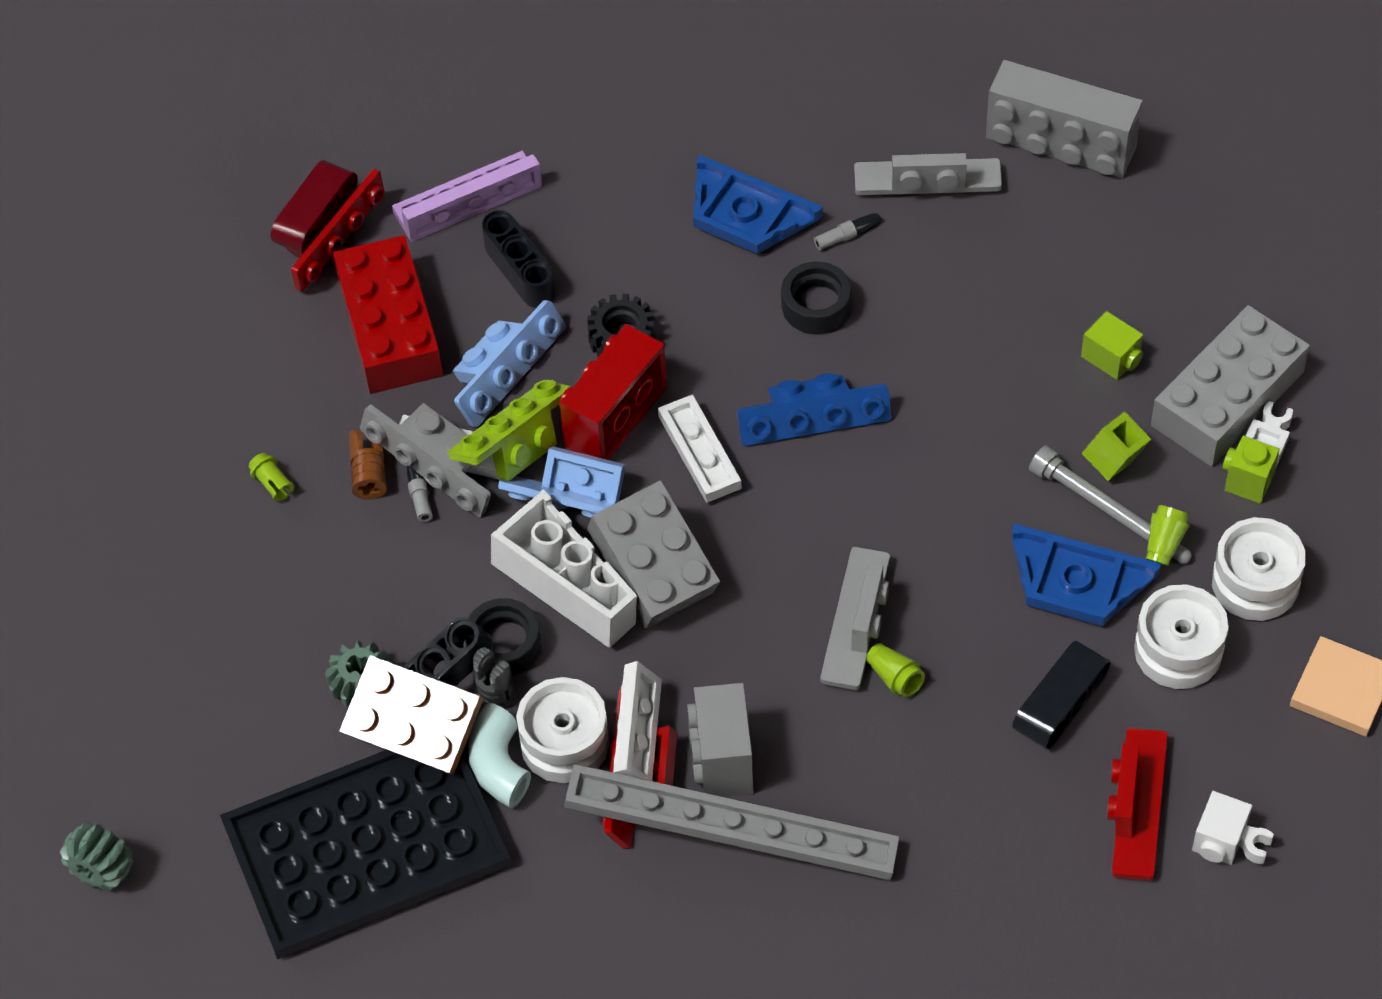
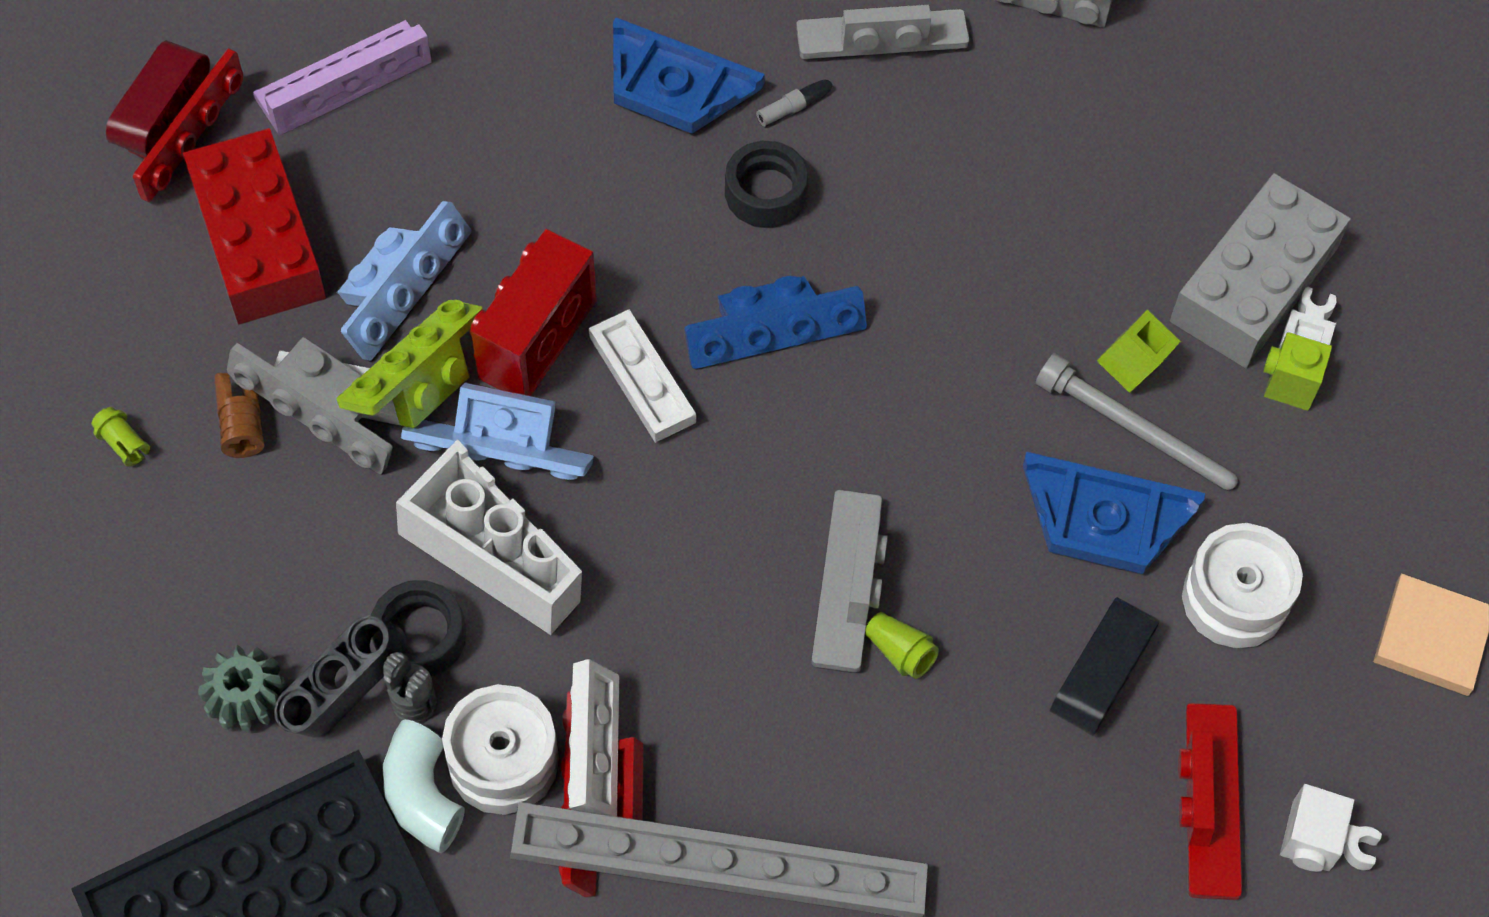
camera: 10 degrees left, 5 degrees up
(411, 714) = (309, 743): plate -> none
(419, 494) = (305, 449): light grey piece -> none
(518, 258) = (408, 150): black beam -> none
(615, 313) = (529, 212): black tyre -> none
(653, 553) = (597, 514): light grey brick -> none
(721, 740) = (699, 754): light grey brick -> none
(1112, 346) = (1118, 228): lime brick -> none
(1166, 533) = (1208, 457): lime cone -> none
(1258, 569) = (1323, 494): white wheel -> none

